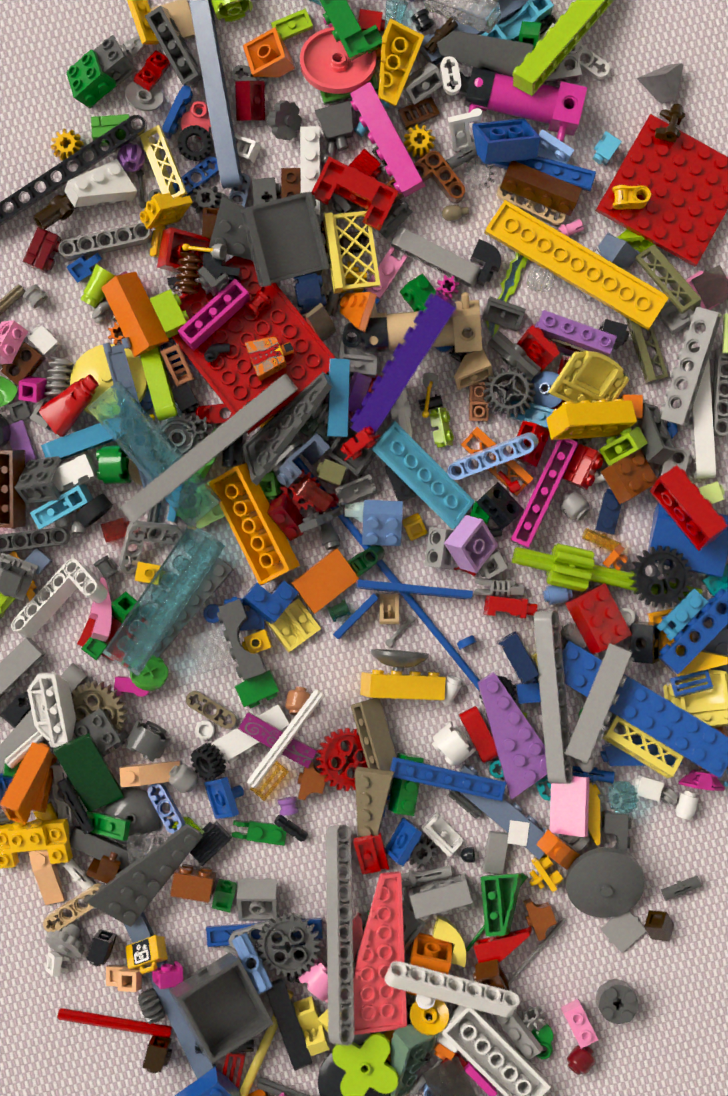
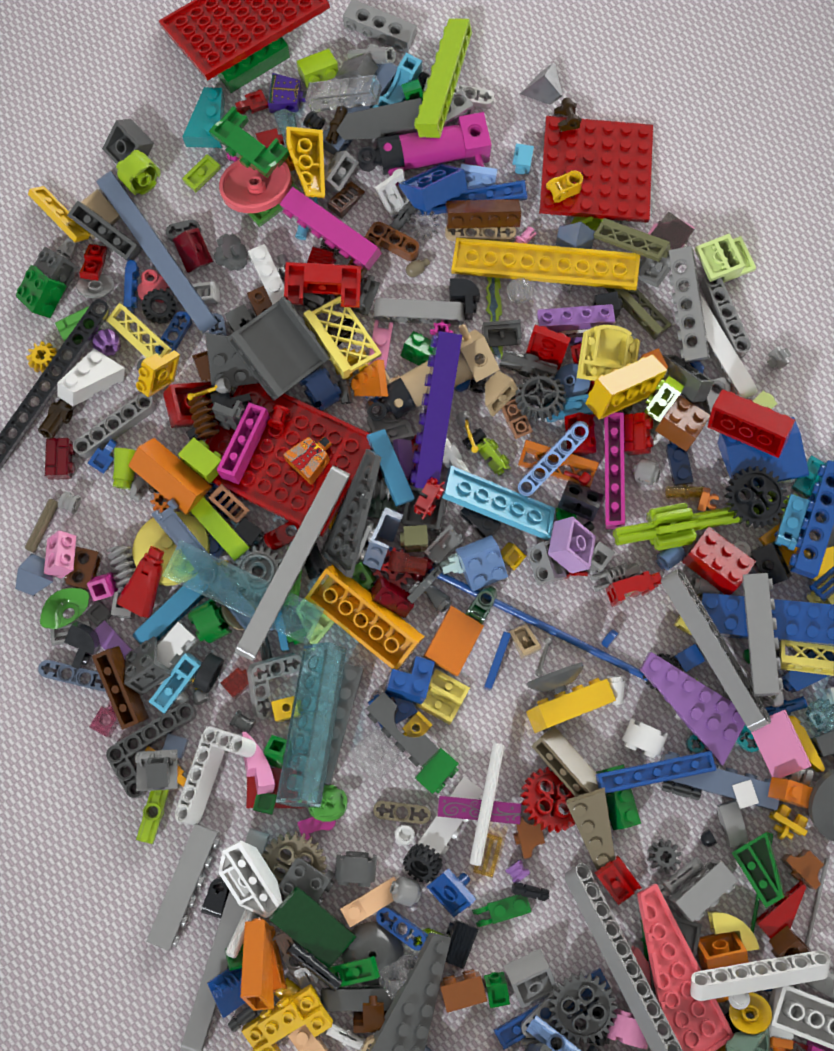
camera: 30 degrees left, 10 degrees down
(44, 340) = (95, 538): white brick -> none
(140, 173) = (120, 354): dark grey hinge -> none
(156, 241) = (161, 406): yellow axle -> none
(199, 421) = (275, 545): dark grey gear -> none
(205, 192) = (186, 345): dark grey gear -> none
(210, 613) = (361, 720): blue tile -> none
(215, 350) = (258, 475): black arm -> none
(268, 55) = (192, 205): orange slope -> none
(296, 700) = (479, 764): nougat head -> none
(320, 322) = (343, 408): dark tan slope -> none
(336, 123) = (278, 237): dark grey torso -> none
(339, 610) = (479, 663): clear green bush -> none
(403, 841) = (643, 853): blue plate -> none
(414, 589) = (539, 611): blue tile -> none
(425, 137) = (360, 215): yellow gear -> none
(442, 834) = (675, 830): white hinge -> none
(454, 74) = (364, 150): white beam -> none
(479, 734) = (662, 718): red beam -> none
(518, 658) = (665, 629): dark blue window -> none

